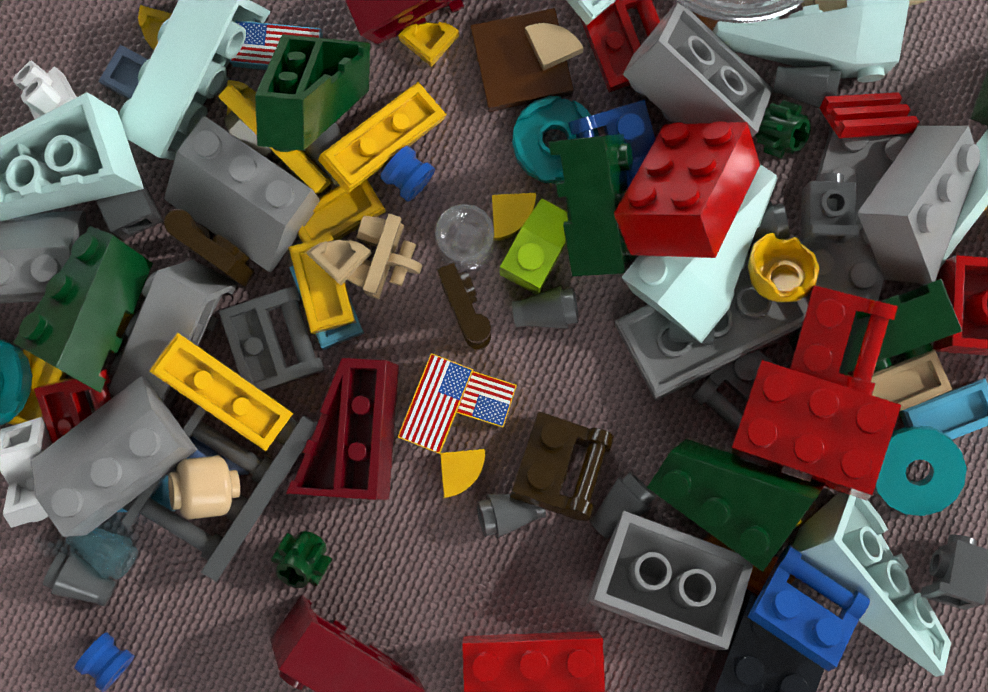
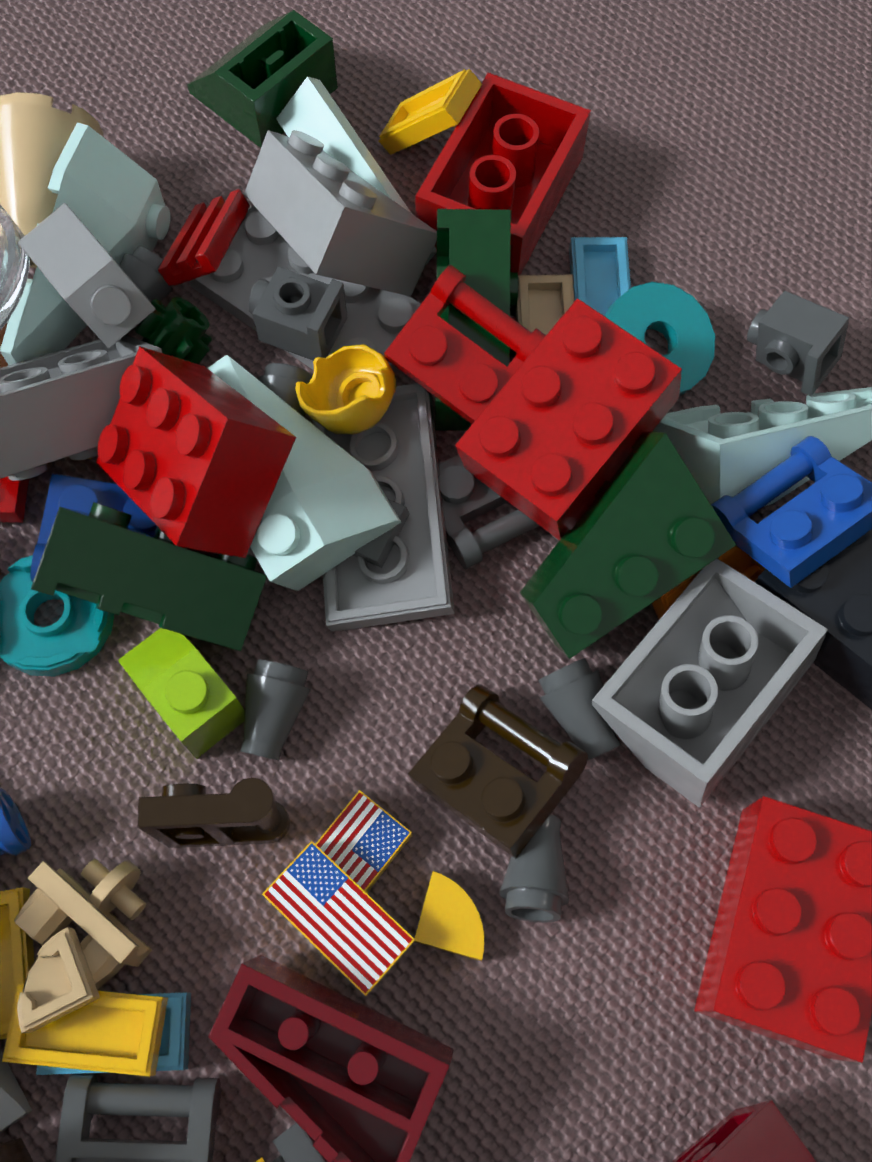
camera: 70 degrees left, 15 degrees down
(465, 237) = (110, 773): clear wheel -> none
(511, 213) = (117, 708): yellow tile -> none
(791, 57) = (86, 275): none -> light grey slope

